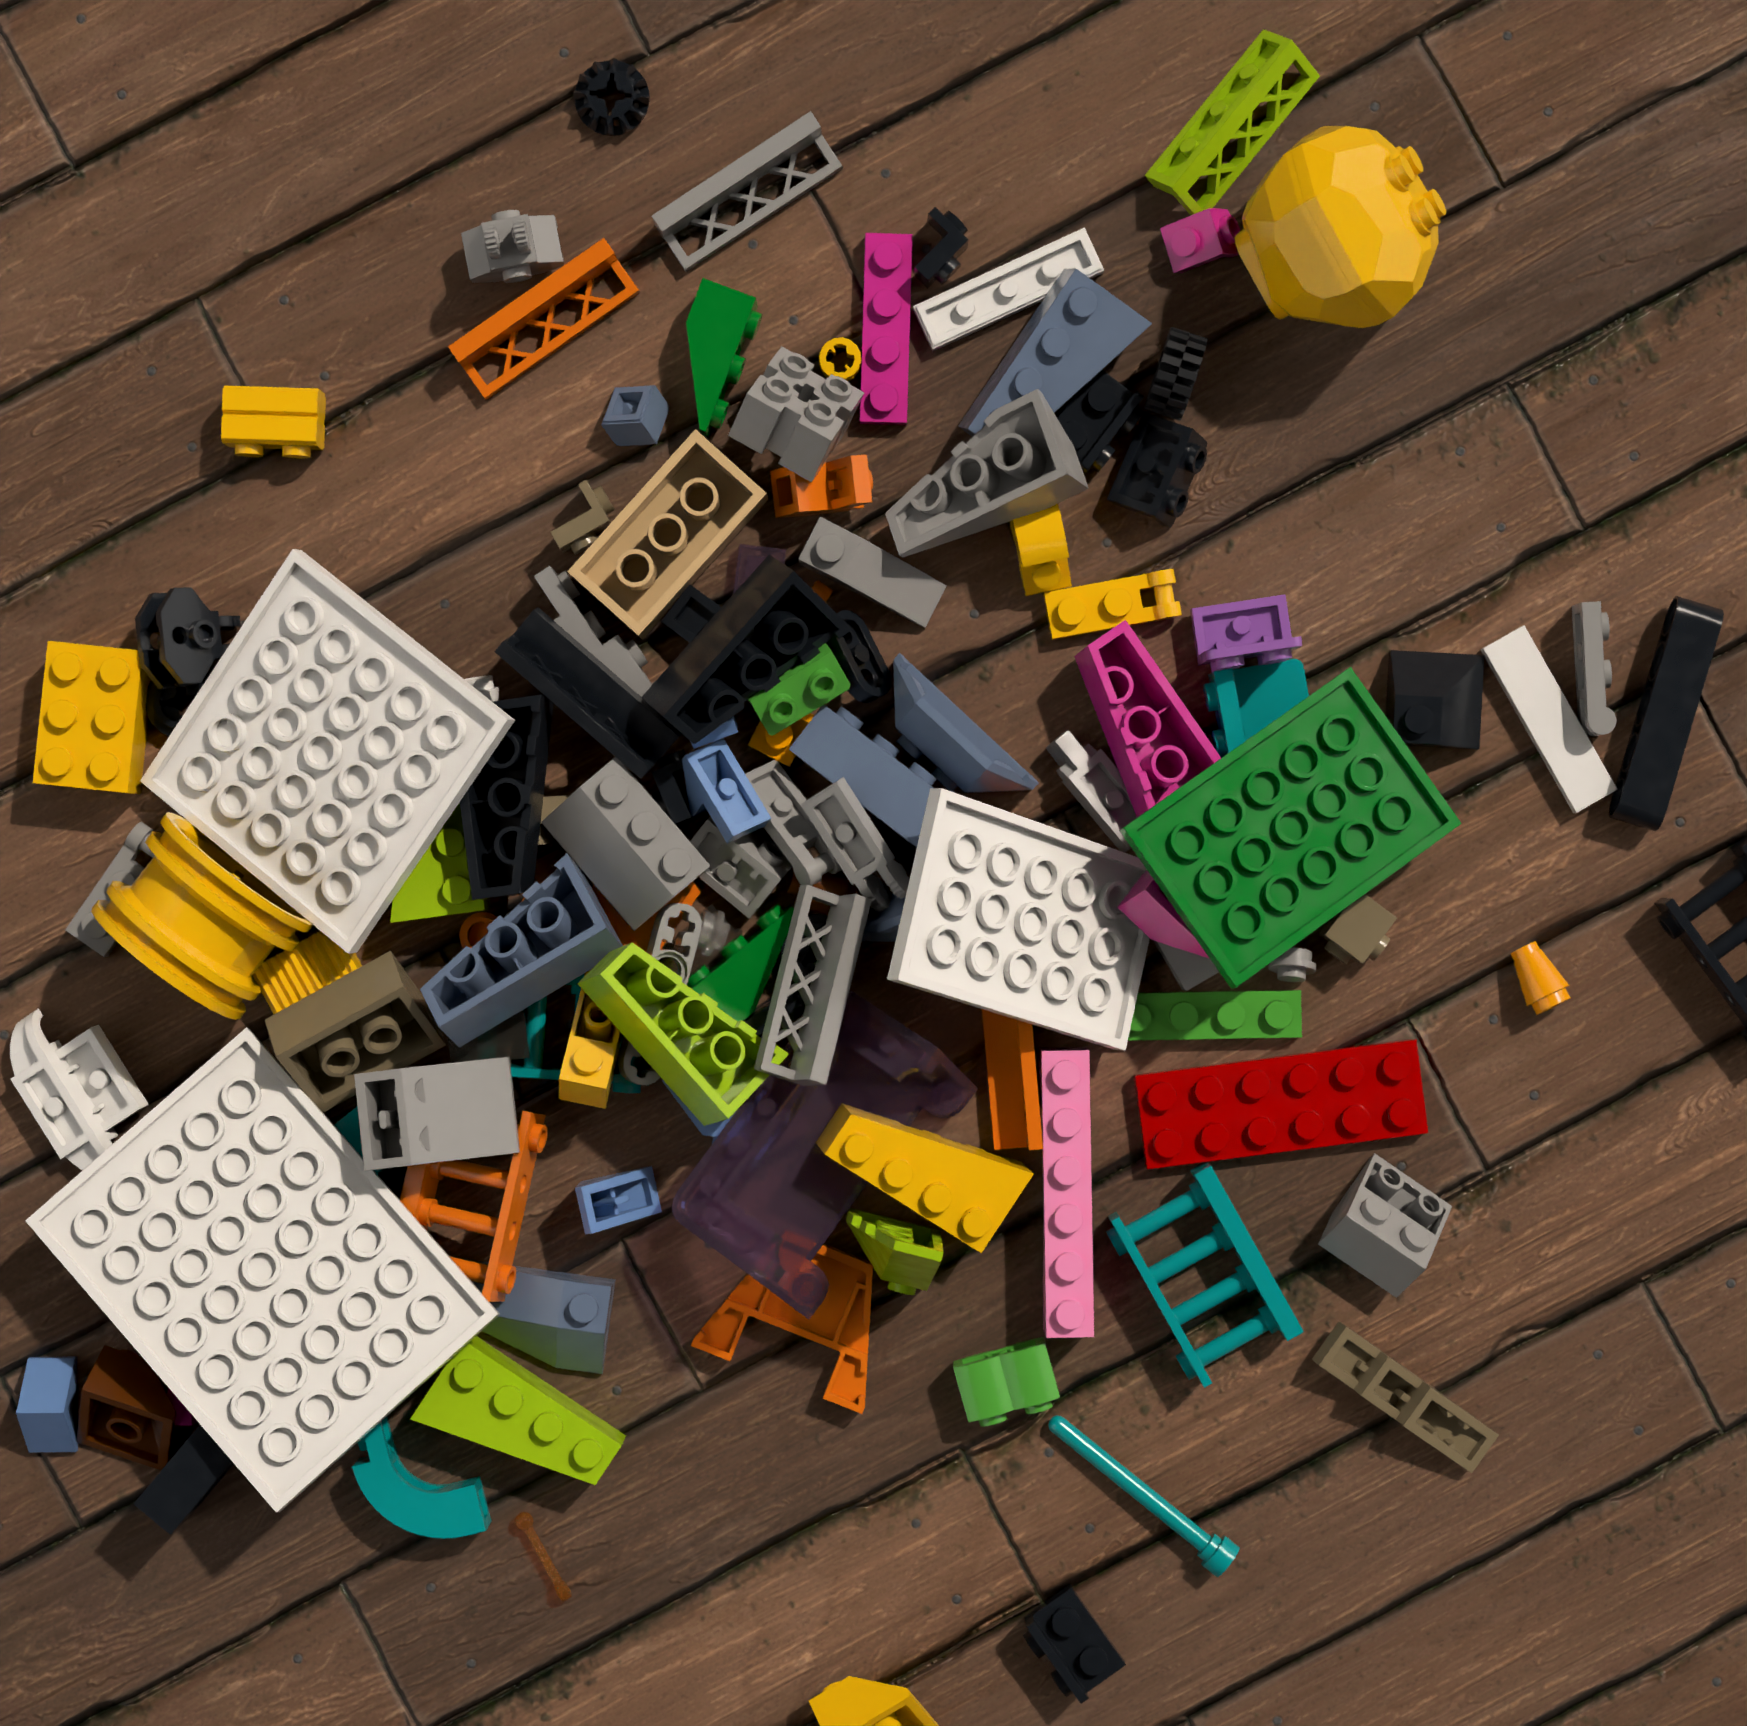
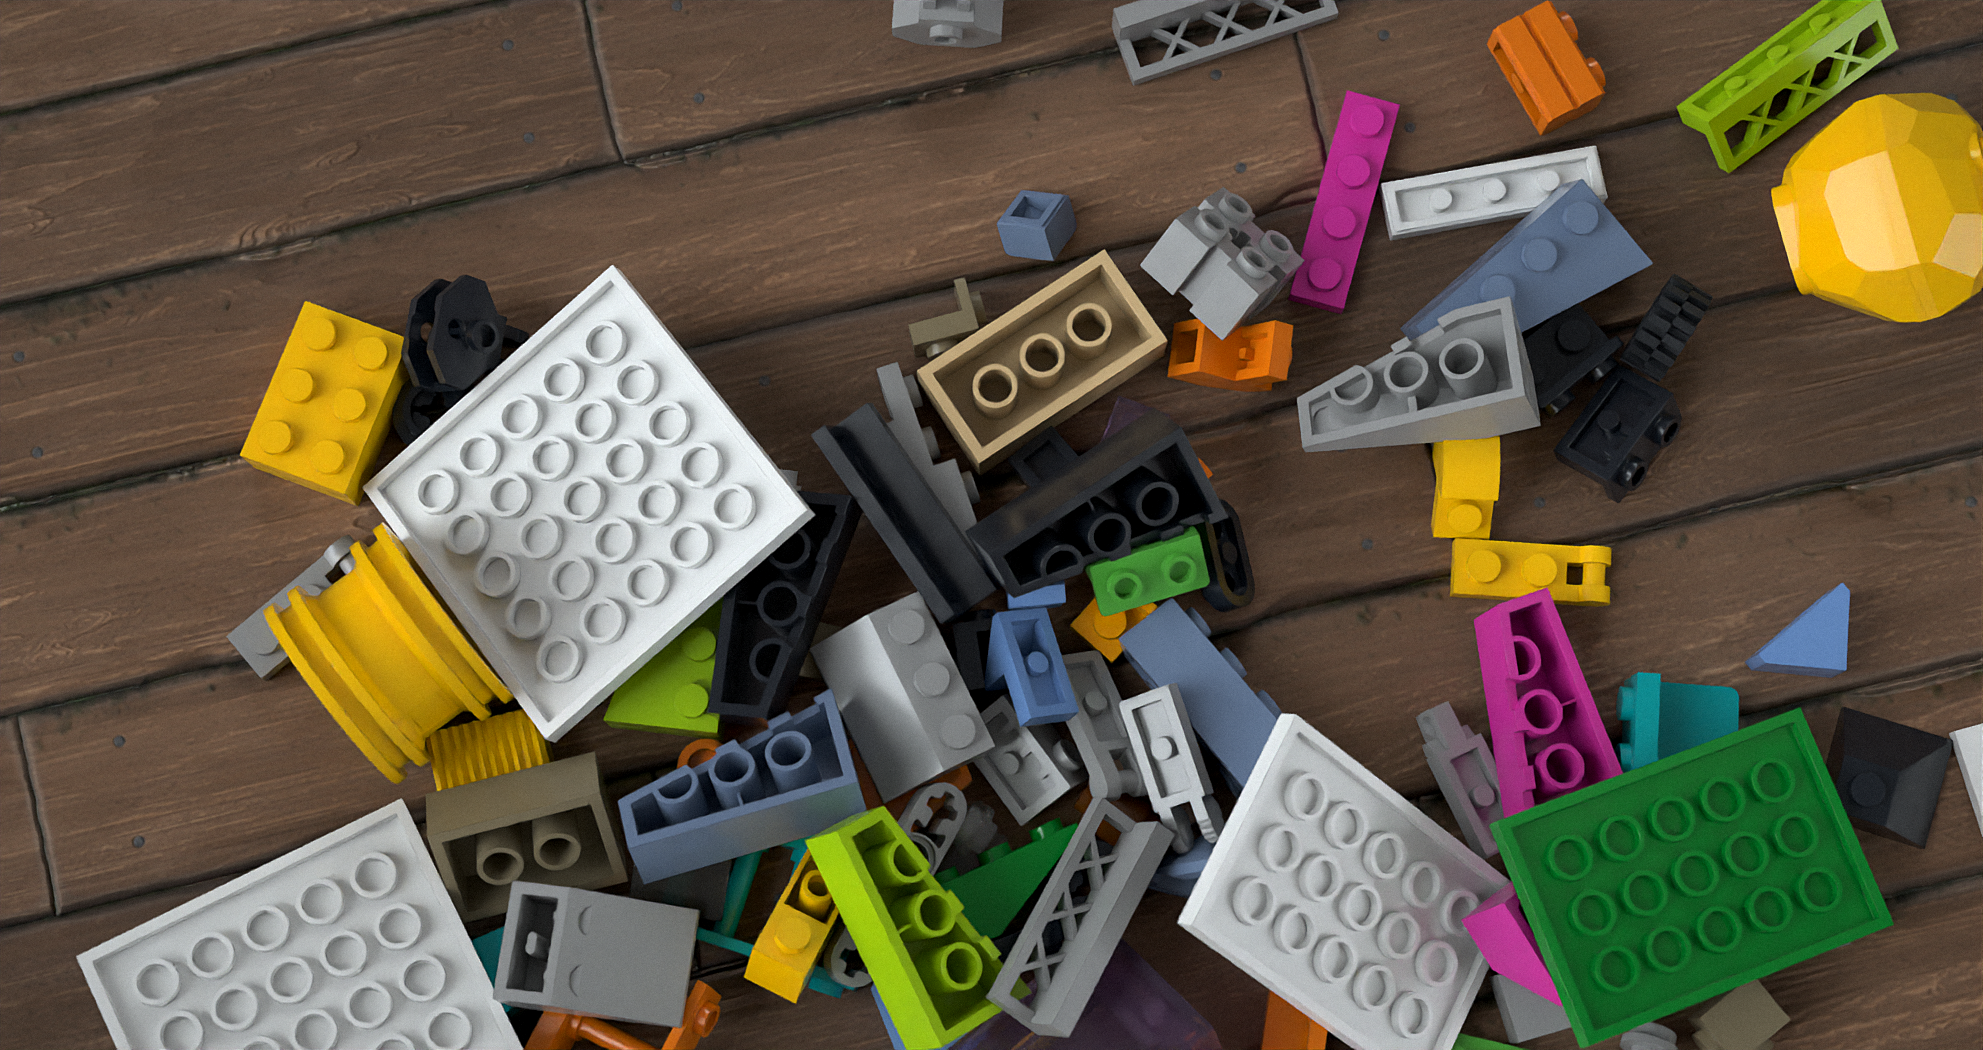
camera: 15 degrees right, 10 degrees down
(73, 1088) = (180, 822): white plate -> none
(273, 420) = (629, 127): yellow brick -> none
(535, 303) = (954, 75): orange fence -> none
(716, 334) = (1152, 157): green slope -> none
(852, 352) = (1287, 203): yellow bush -> none
(871, 572) = (1261, 464): light grey slope -> none
(942, 259) = (1428, 138): black bracket -> none
(950, 739) = (1306, 675): sand blue wedge -> none
(1028, 169) = (1547, 66): none -> orange brick
(1200, 239) = (1725, 190): dark pink bracket -> none
(1243, 630) = (1679, 641): medium lavender bracket -> none
(1351, 605) = (1812, 642): none -> medium blue slope

